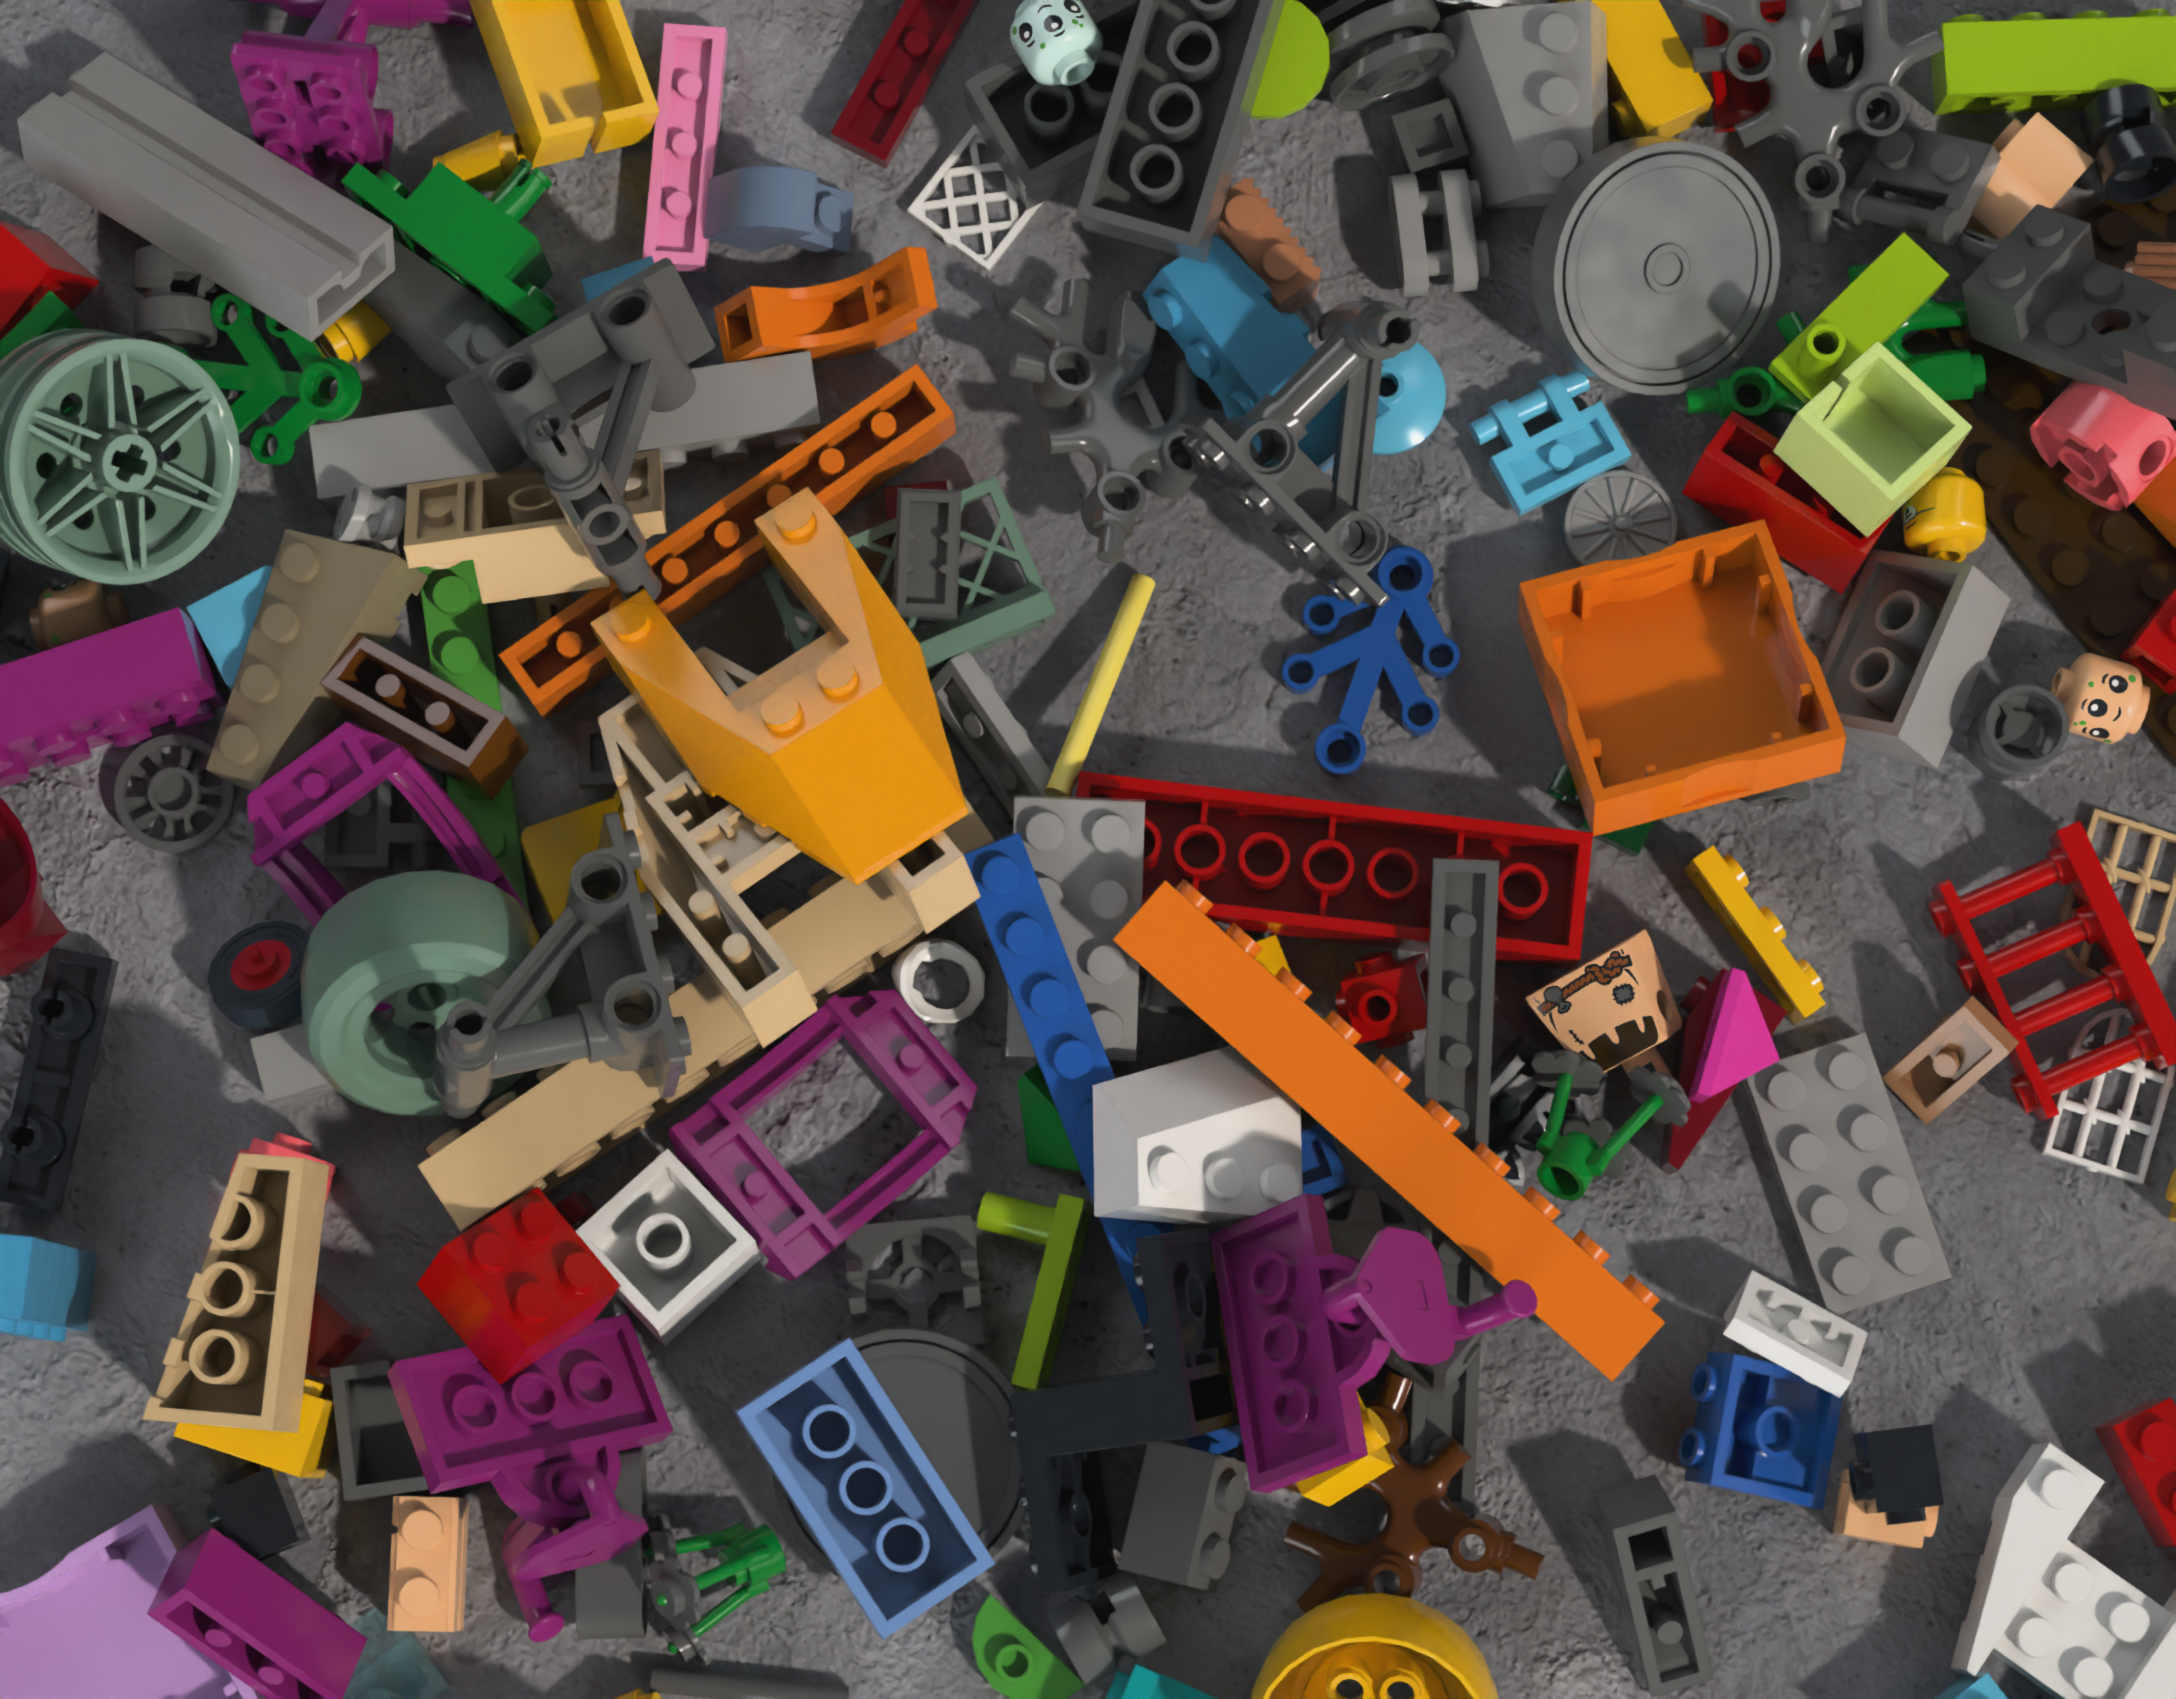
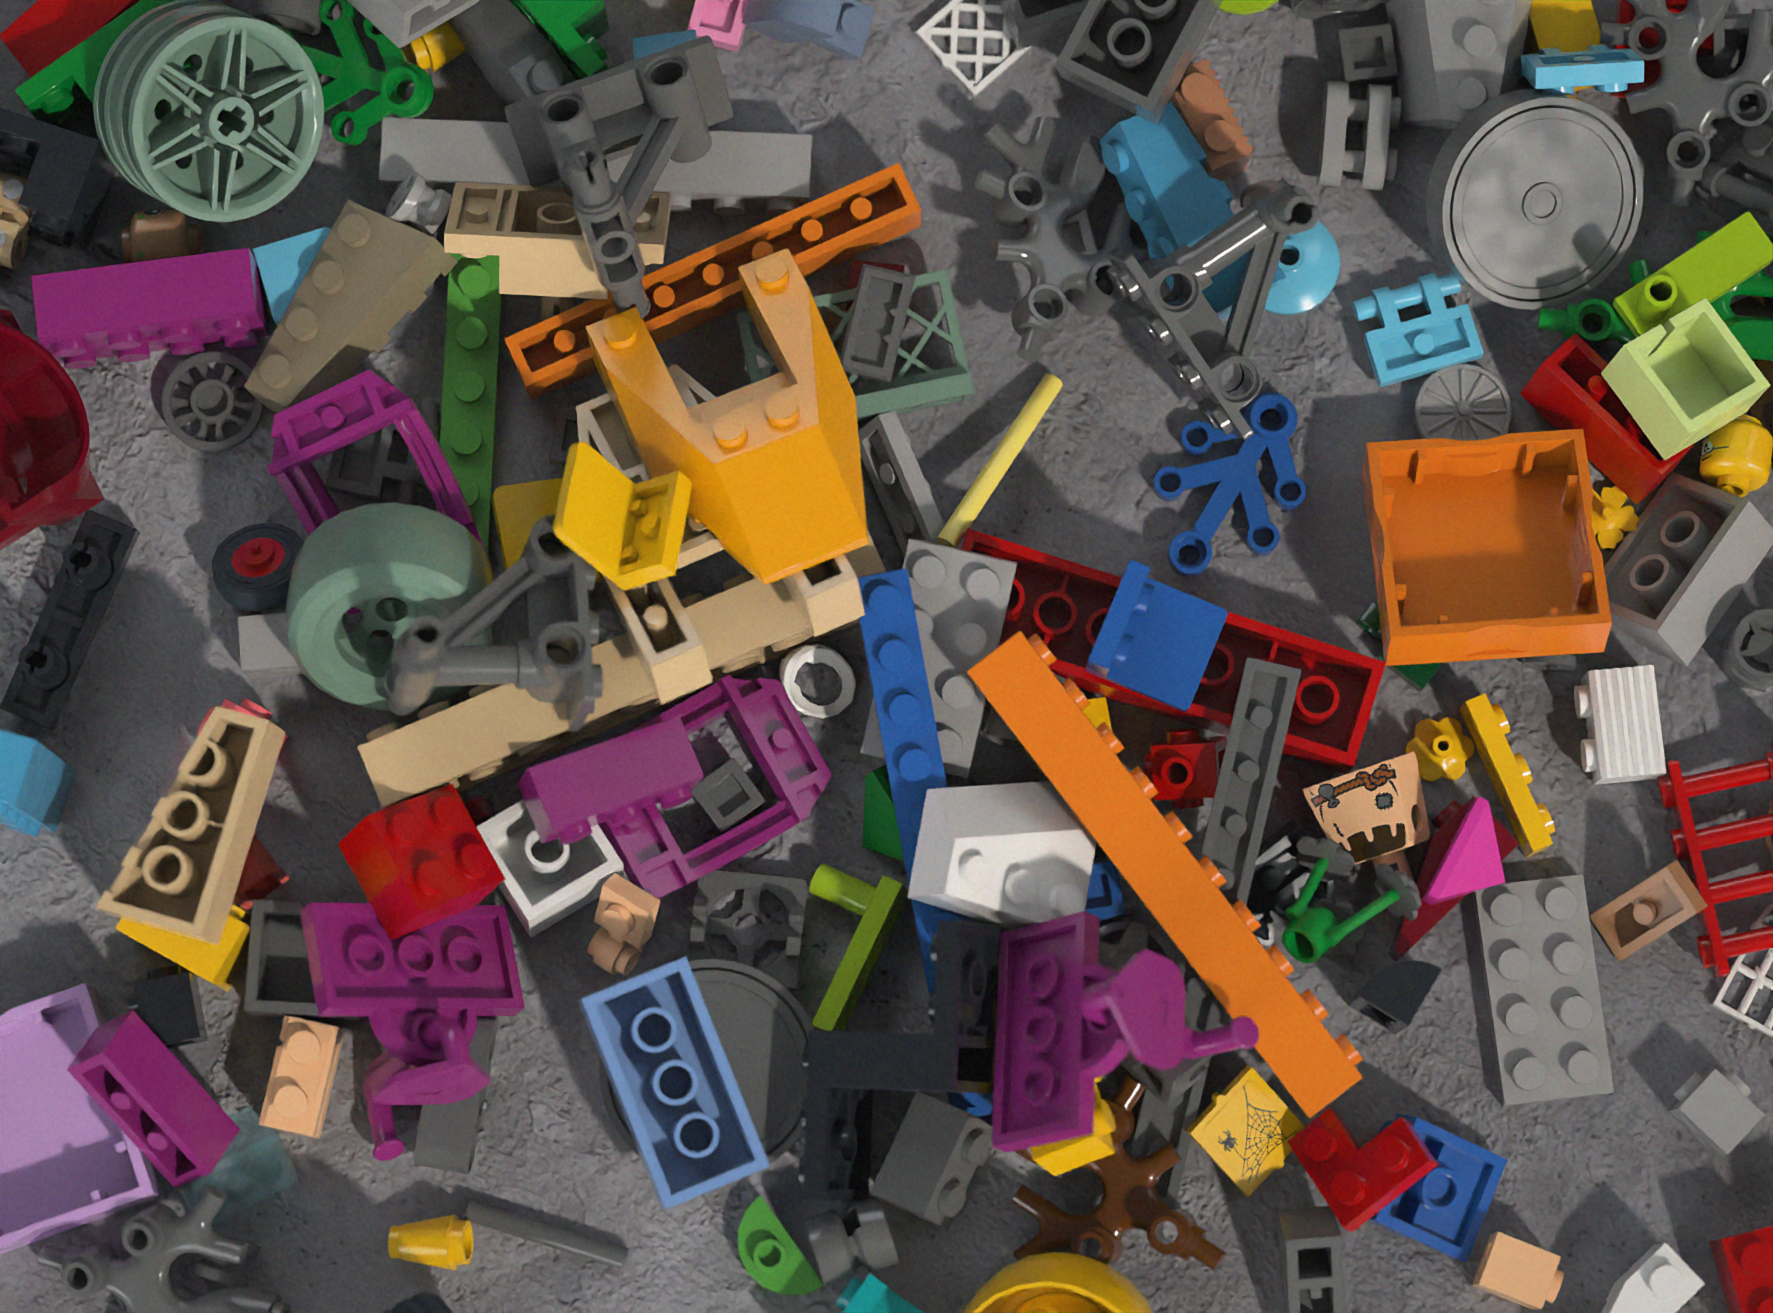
camera: 10 degrees right, 0 degrees up
(425, 716) = (434, 377): reddish brown brick -> none
(673, 847) = (618, 525): none -> yellow bracket
(722, 1148) = (611, 781): none -> magenta brick
(747, 1560) = (564, 1126): plant -> none
(772, 1309) = (626, 923): none -> light nougat plate
(830, 317) = (834, 110): orange arch -> none
(861, 1135) = (728, 796): none -> dark grey plate
(1324, 858) = (1156, 639): none -> blue bracket
(1540, 1406) = (1246, 1130): none -> yellow piece
(1669, 935) = (1431, 760): none -> yellow plant
(1681, 1215) = (1396, 994): none -> black brick
(1684, 1438) = (1359, 1179): none -> red plate
(1697, 98) = (1598, 66): none -> medium azure plate
(1794, 1333) = (1471, 1111): white bracket -> none
(1814, 616) = (1610, 519): none -> yellow plant
(1874, 851) = (1621, 725): none -> white brick
(1896, 1473) = (1531, 1241): black brick -> none
(2073, 1275) = (1716, 1109): none -> light grey brick

